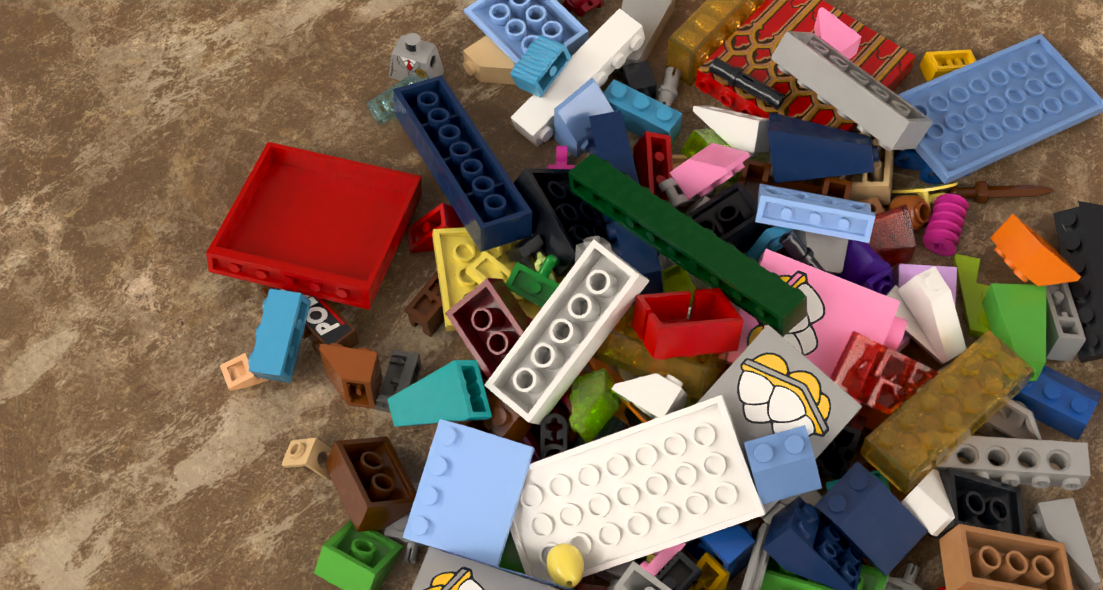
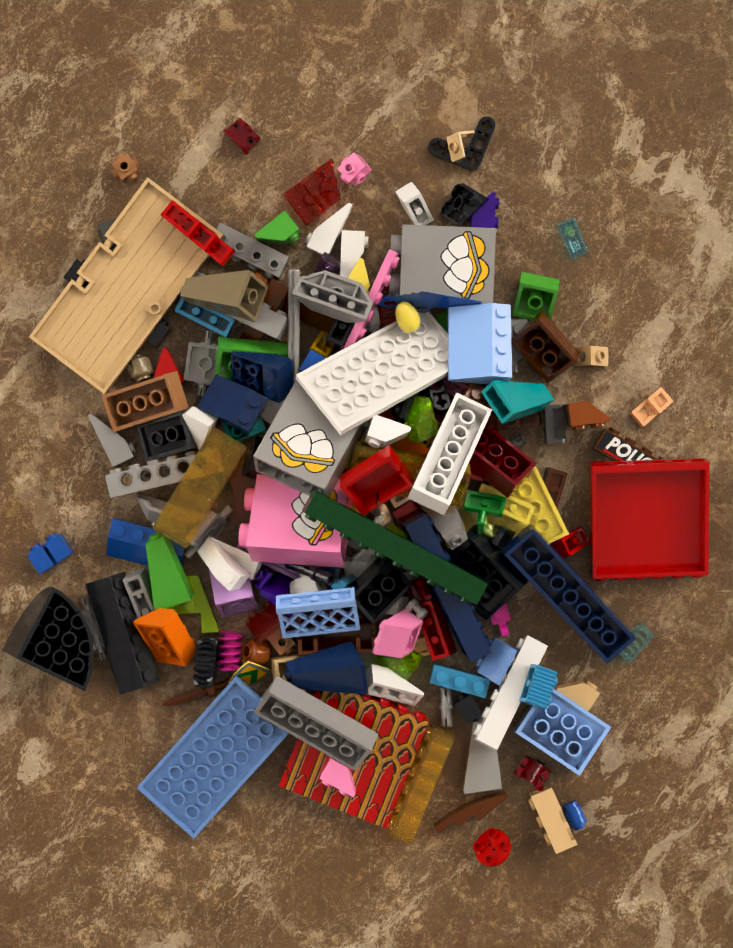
camera: 165 degrees right, 30 degrees up
(279, 335) = (641, 426): dark azure brick -> none
(415, 58) = (629, 675): light grey torso -> none
(738, 78) = (390, 716): black pin -> none
(783, 464) = (294, 408): medium blue slope -> none
(879, 374) = (248, 496): clear red slope -> none
(932, 62) = (260, 784): yellow slope -> none
(984, 213) = (205, 662): none -> black gear

